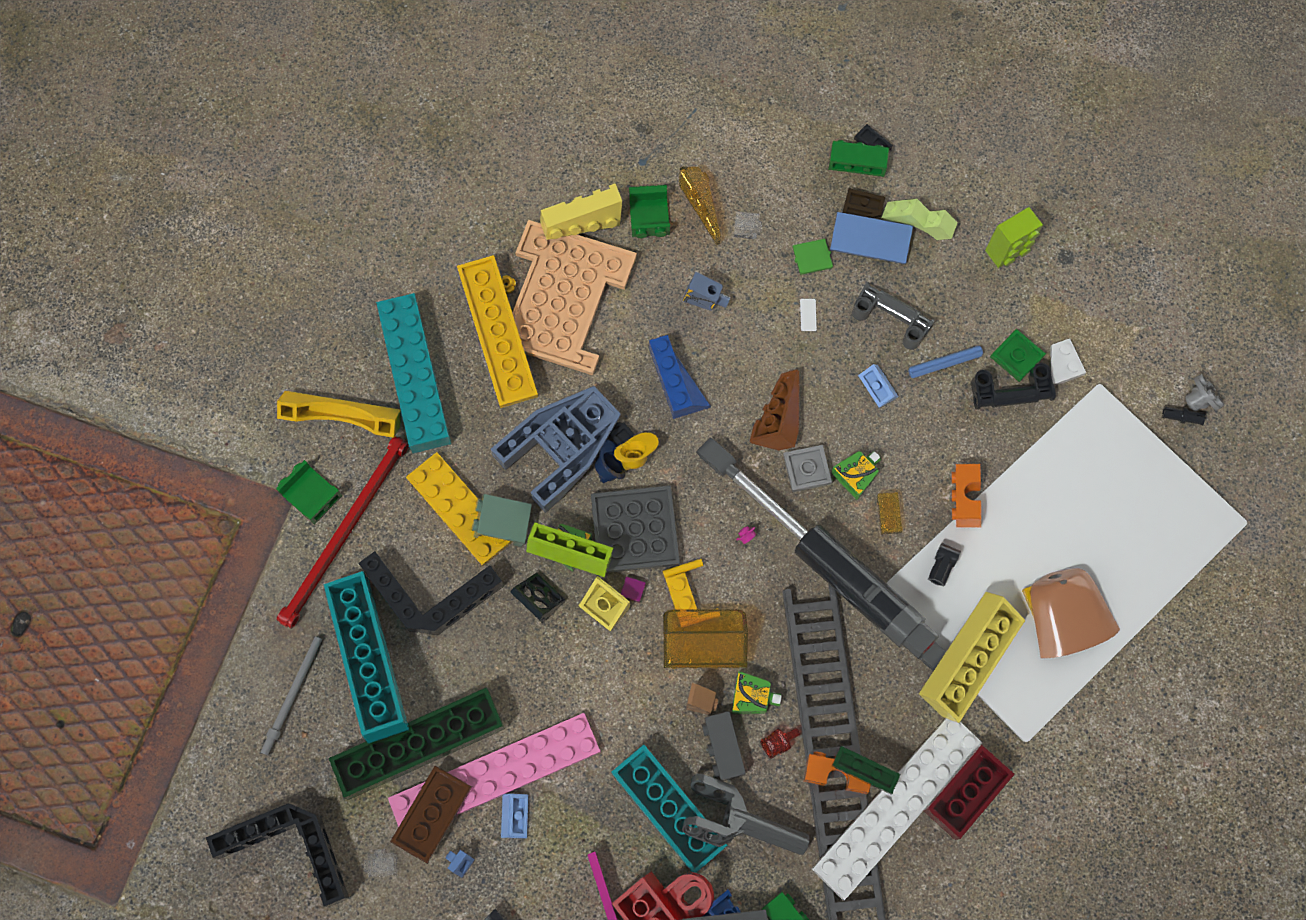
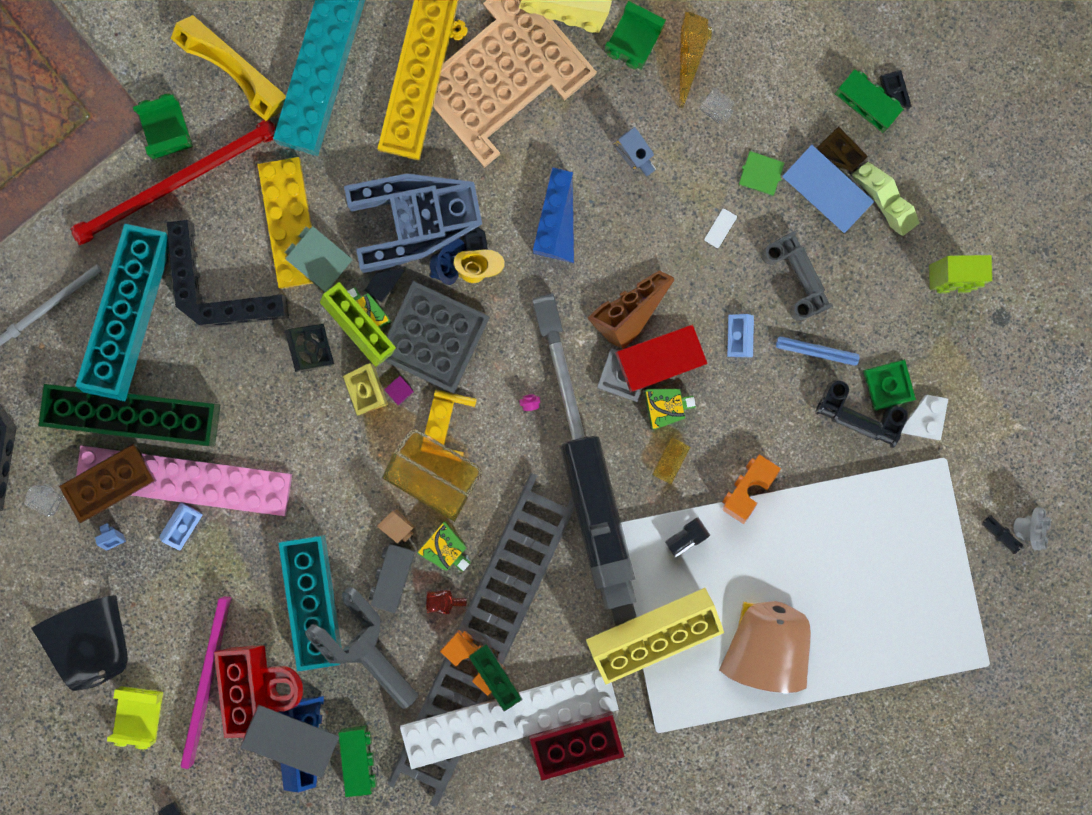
camera: 30 degrees right, 15 degrees up
(567, 510) = (383, 283): none -> black tile
(828, 437) = (661, 358): none -> red tile

